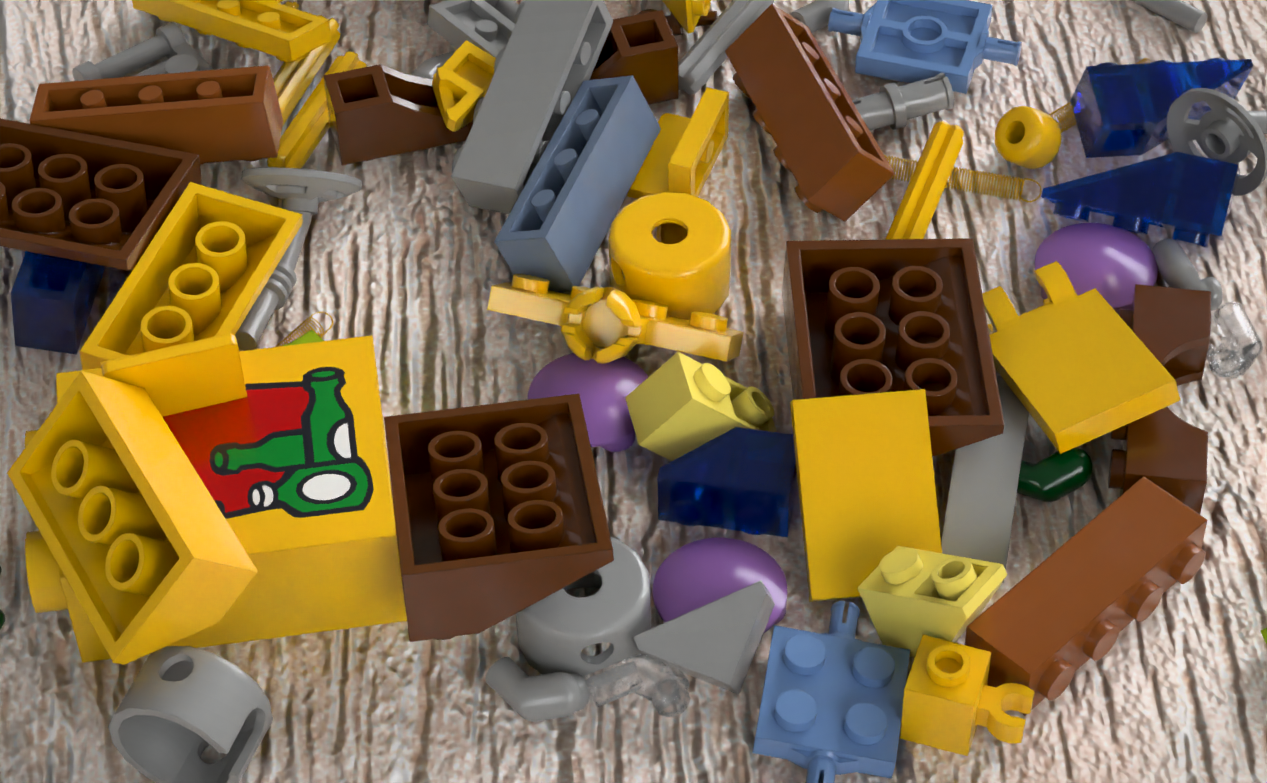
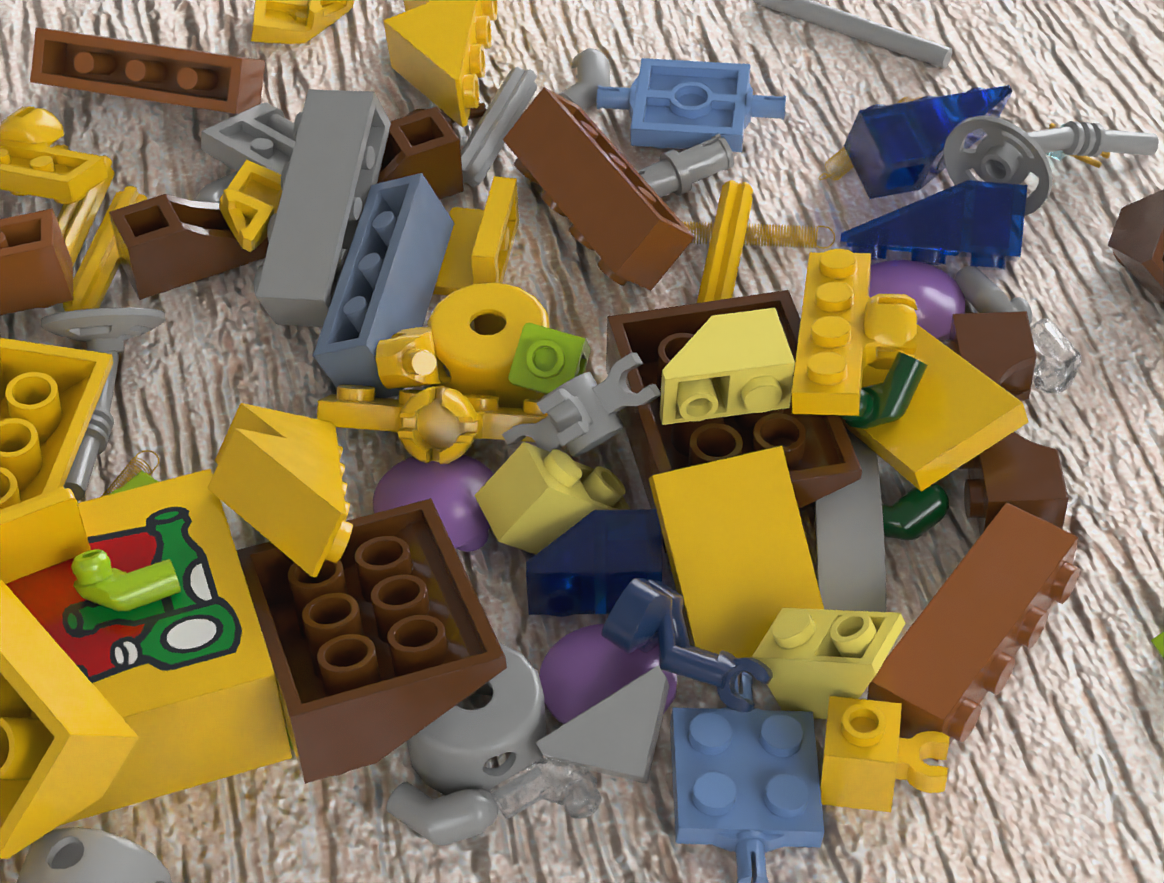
camera: 10 degrees left, 0 degrees up
(267, 436) = (120, 589): none -> lime arm
(441, 357) = (286, 483): none -> yellow slope
(585, 257) = (408, 359): none -> yellow piece
(724, 280) = (547, 358): none -> lime bracket
(744, 331) = (584, 412): none -> light grey pin
(768, 539) = (652, 616): none -> dark blue piece
(889, 308) = (729, 369): none -> light yellow slope
(1015, 285) = (845, 333): none -> yellow plate
(1027, 137) = (812, 186): yellow piece -> none
(1041, 360) = (889, 399): none -> dark green arm

